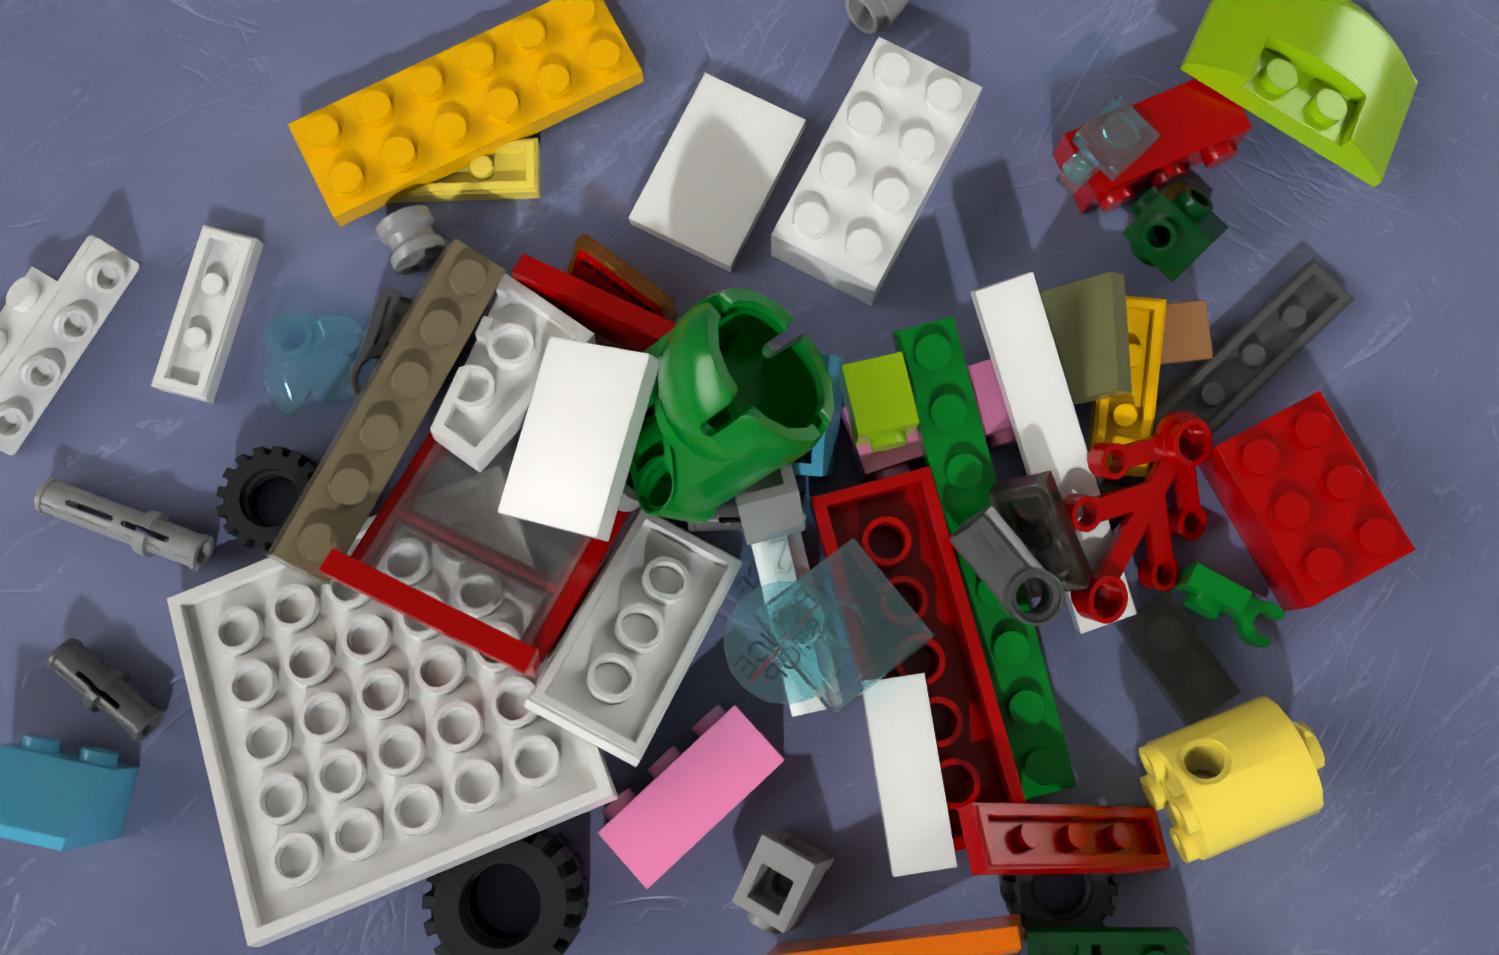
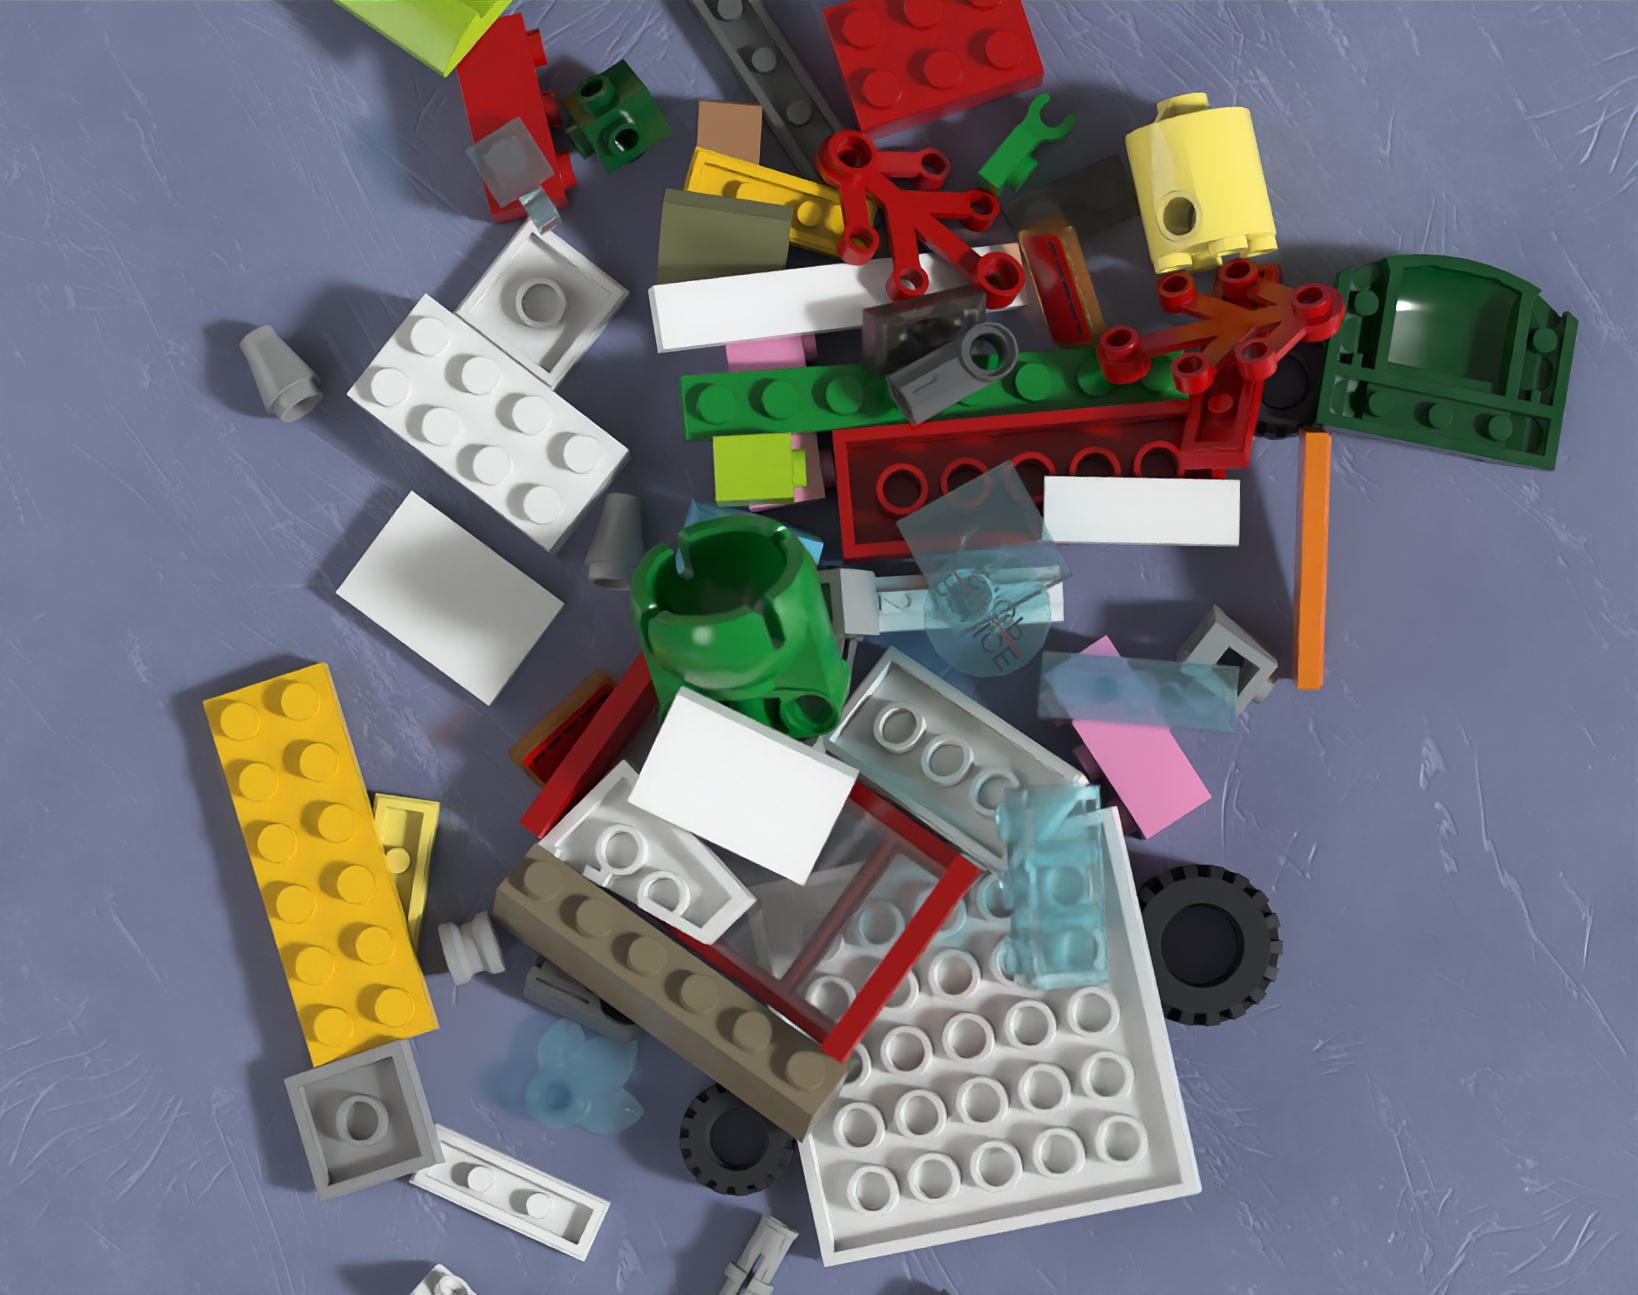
camera: 80 degrees left, 5 degrees up
(246, 175) = (364, 1120): none -> light grey plate
(520, 750) = (1053, 886): none -> clear light blue brick
(730, 802) = (1136, 693): none -> clear light blue brick
(801, 299) = (616, 543): none -> light grey cone
(990, 203) = (542, 304): none -> white tile
(1108, 662) = (1062, 283): none -> slope
(1133, 903) = (1297, 314): none -> red plant

